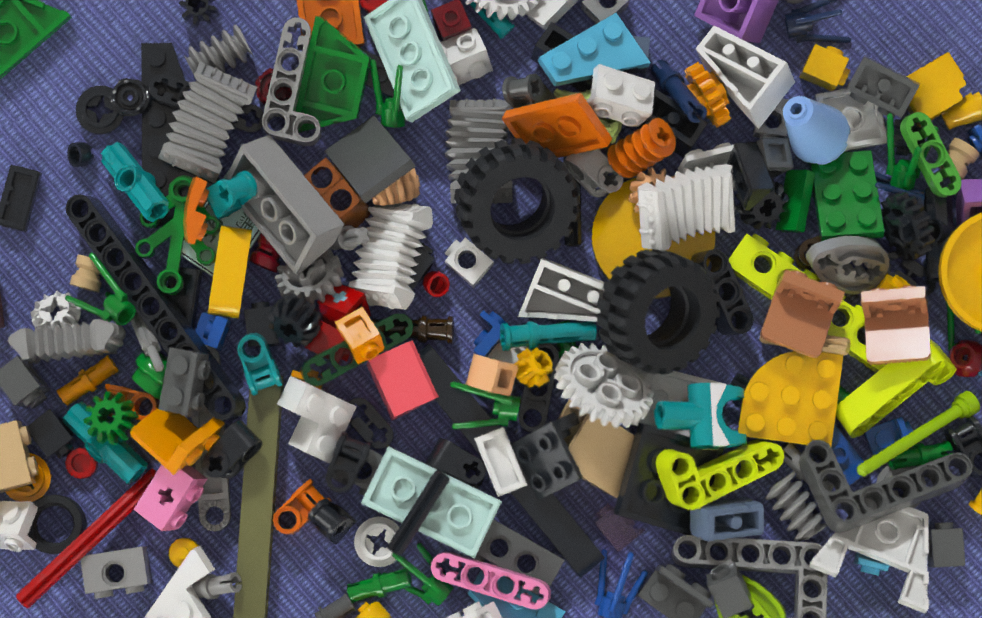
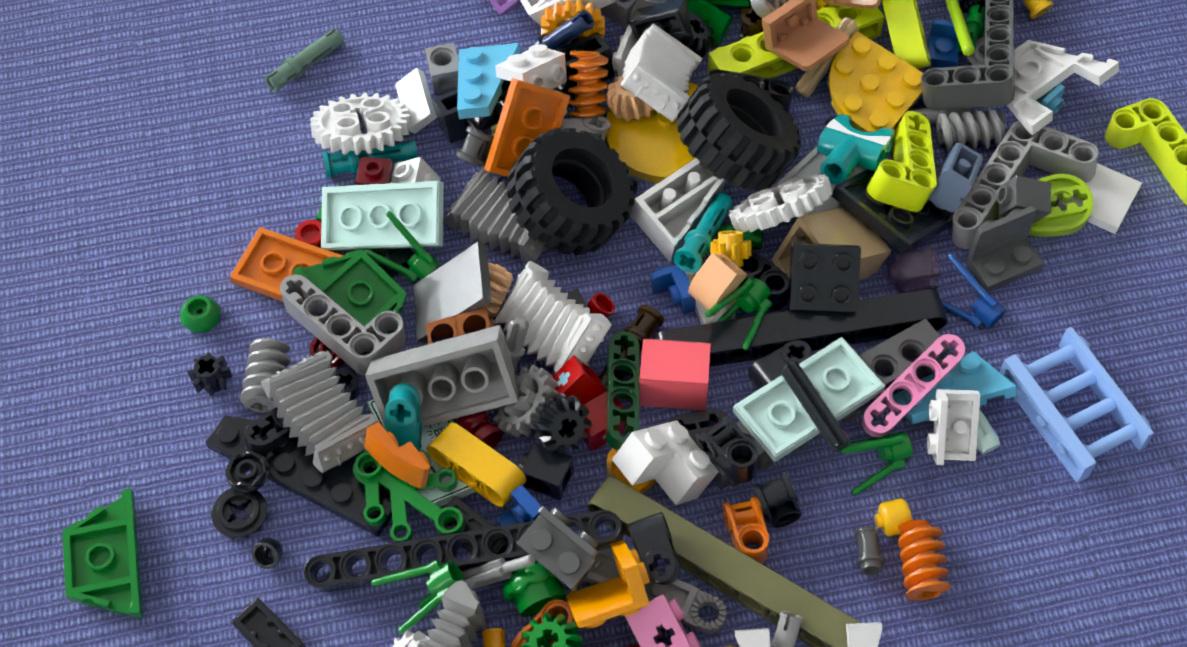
camera: 60 degrees left, 25 degrees down
(87, 276) = (389, 606): tan wheel -> none
(135, 182) = (345, 497): teal piece -> none
(259, 365) = (584, 478): teal piece -> none
(360, 335) = (611, 368): light orange bracket -> none
(365, 546) = (820, 463): white gear -> none
(379, 585) = (863, 494): green pin -> none
(475, 273) = (602, 260): white brick -> none
(500, 462) = (802, 324): white tile -> none
(946, 546) = (1064, 37): dark grey brick -> none

